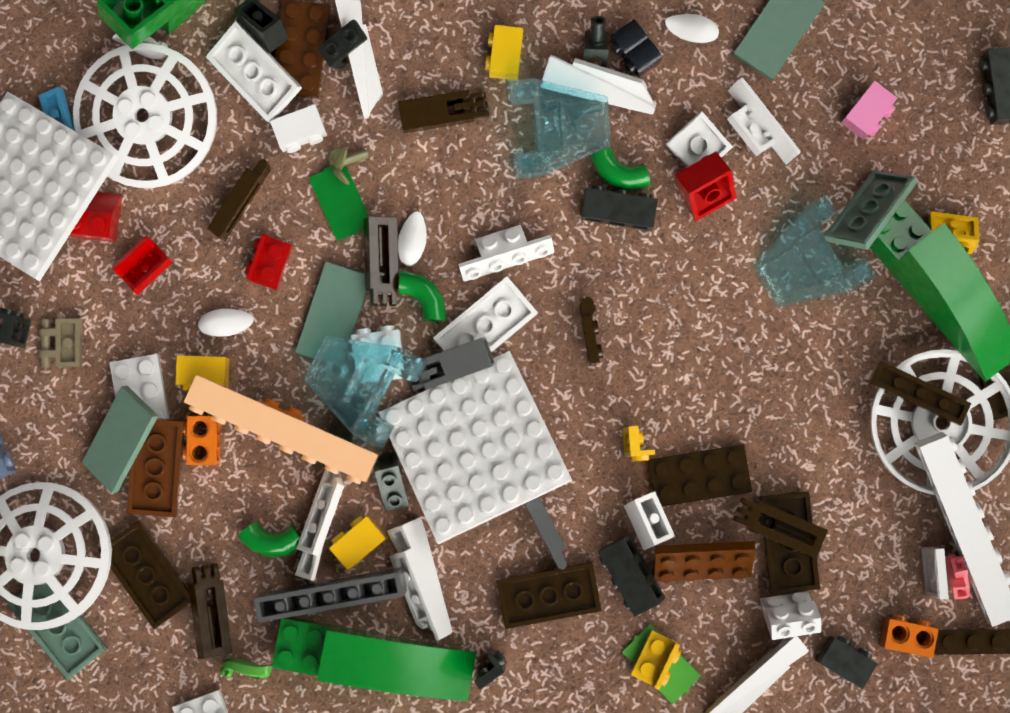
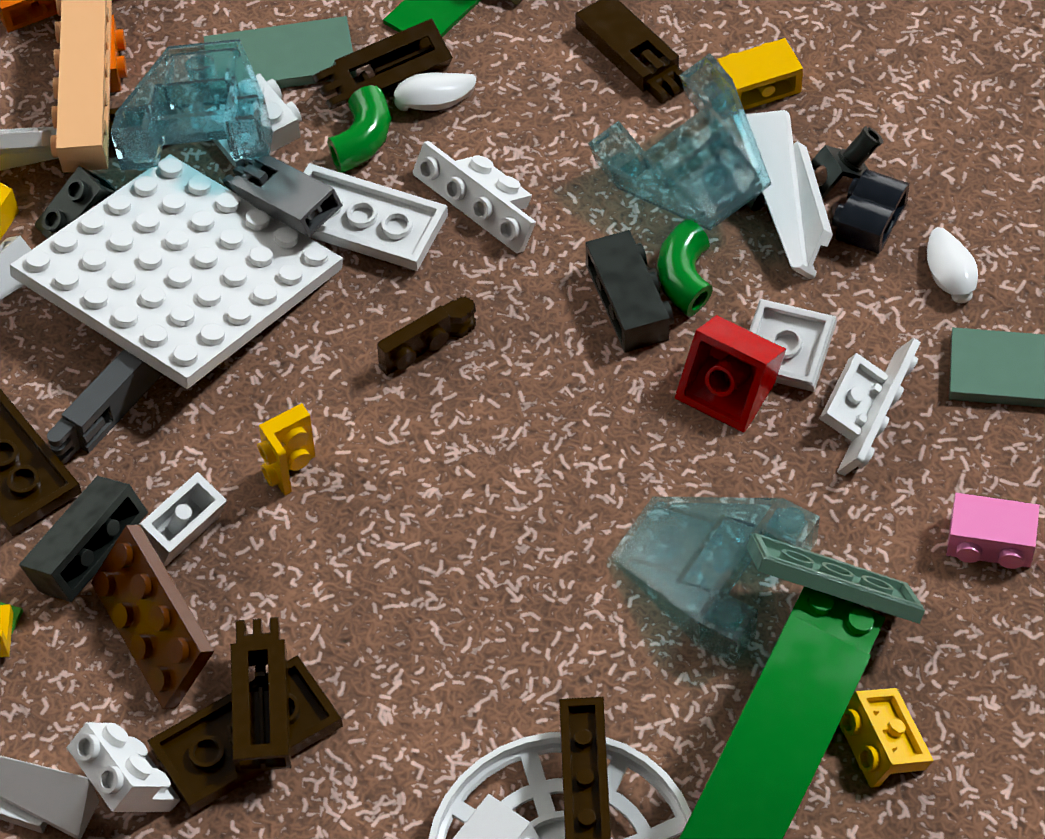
camera: 65 degrees right, 30 degrees down
(700, 475) = (289, 571): dark brown plate -> none

